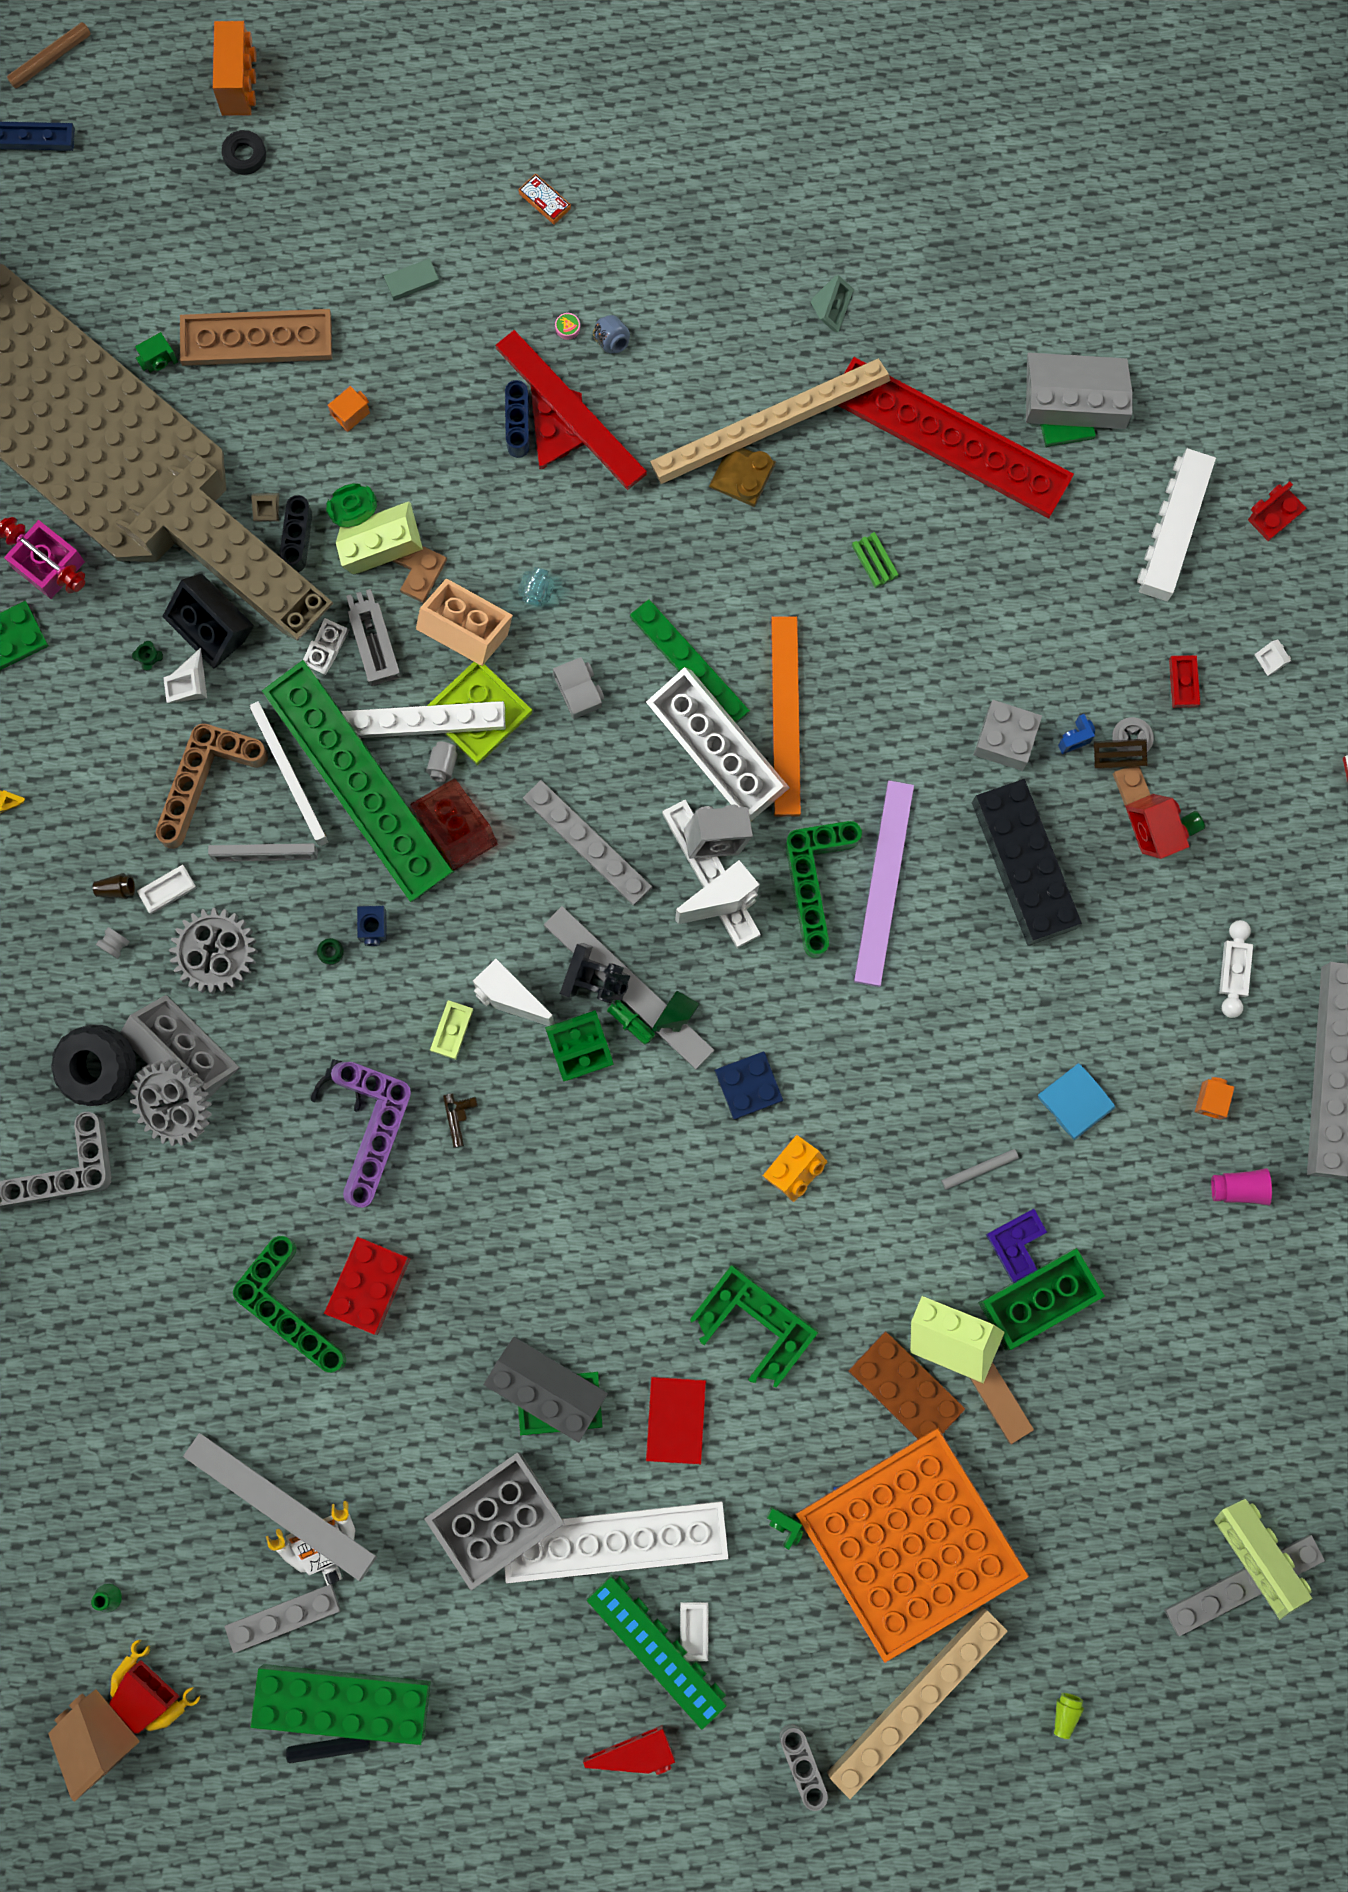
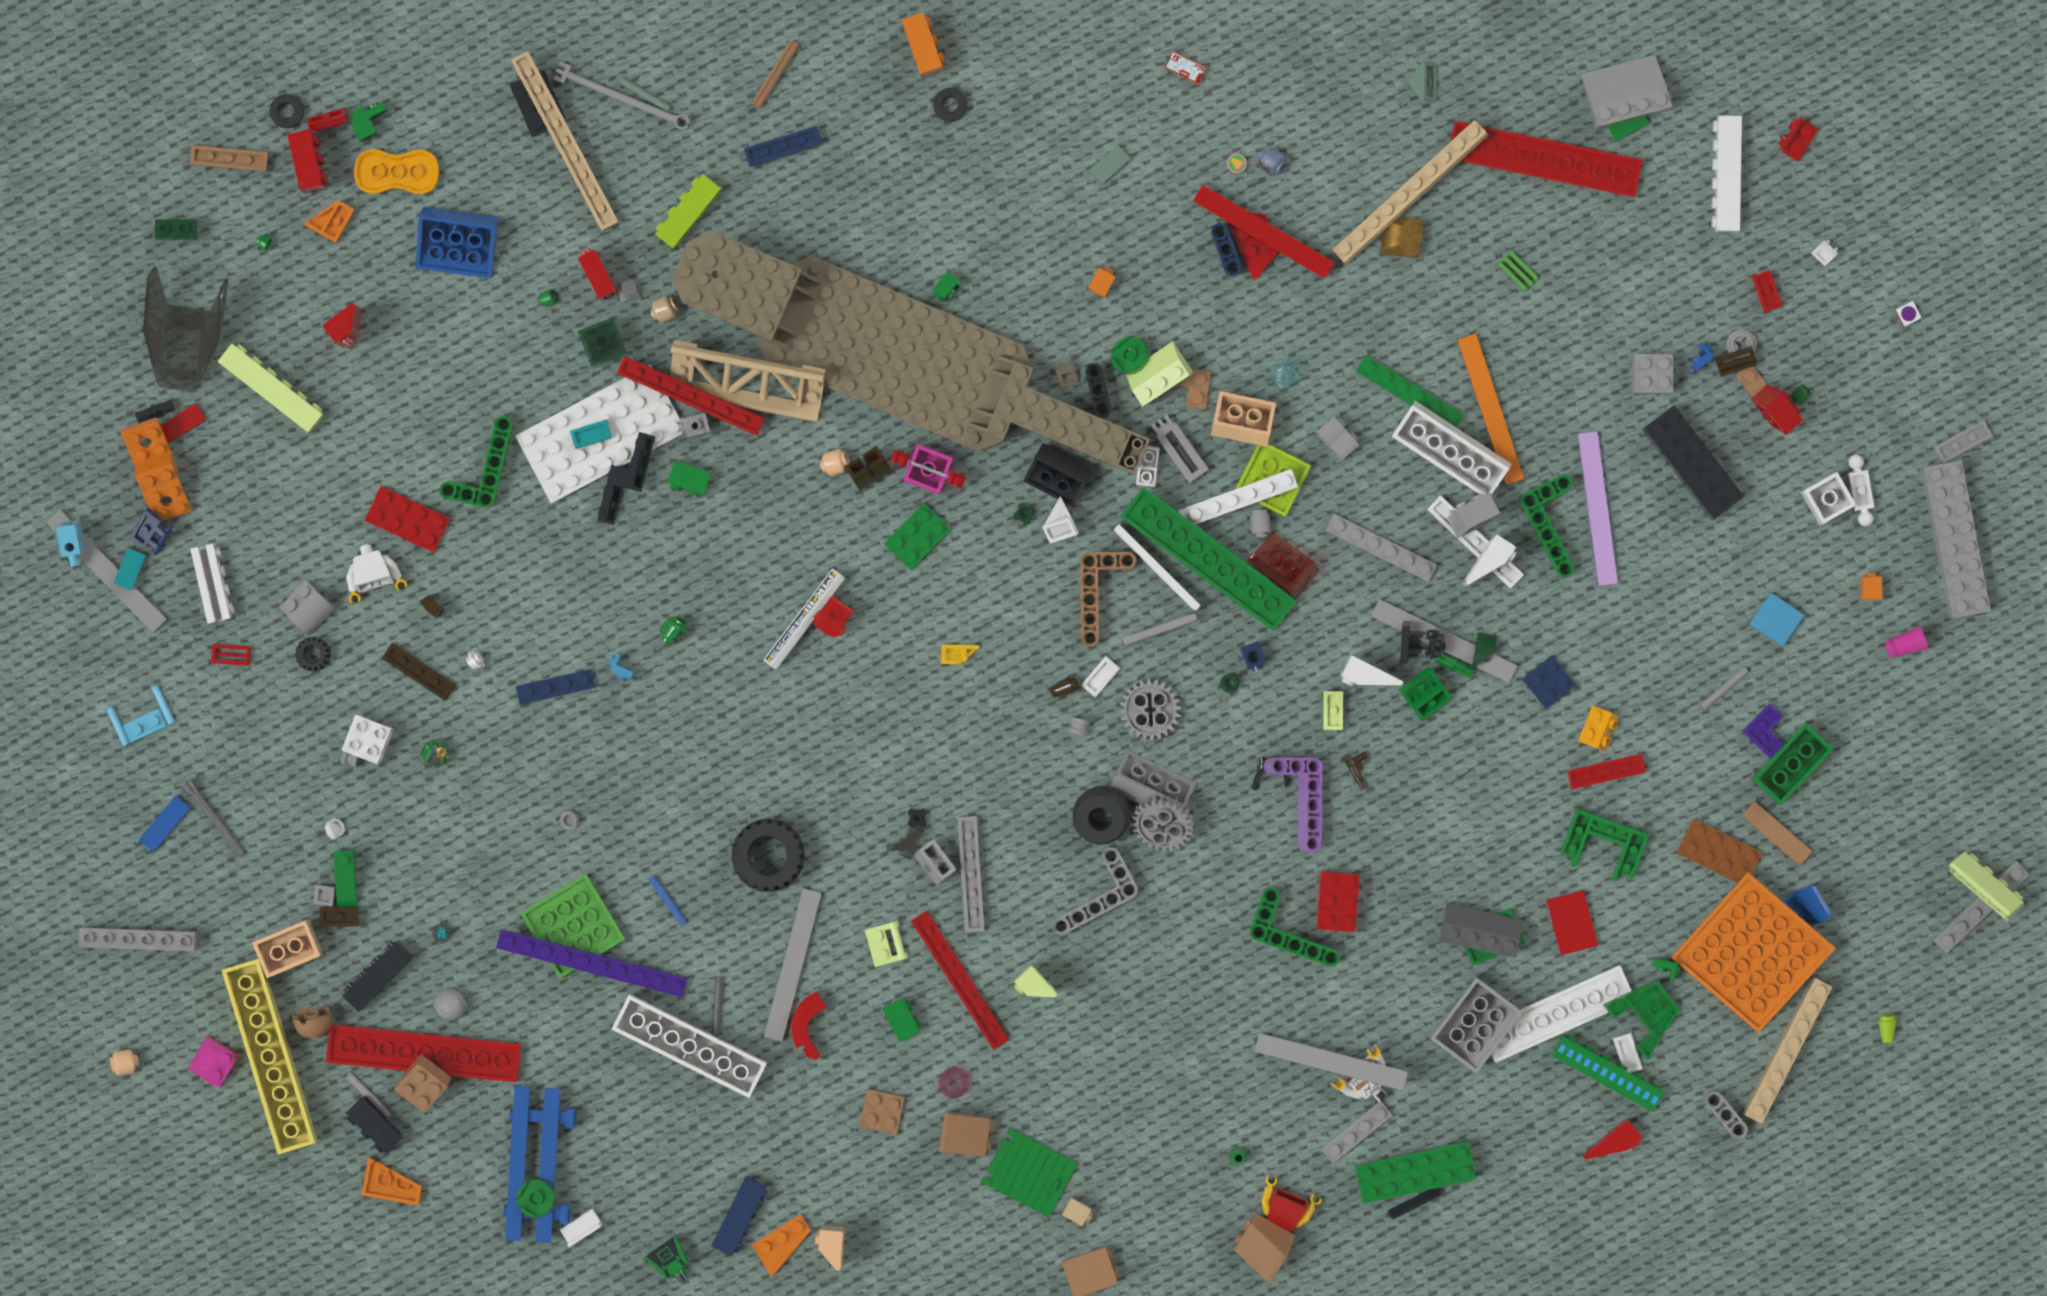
camera: 15 degrees left, 10 degrees up
(255, 337) = (1013, 248): medium nougat plate -> none
(747, 1576) = (1653, 1009): none -> green wing
(787, 1228) = (1606, 771): none -> red plate
(954, 1339) = (1741, 810): yellowish green slope -> none
(1008, 1503) = (1808, 905): none -> blue bracket
(1191, 963) = (1828, 498): none -> white brick

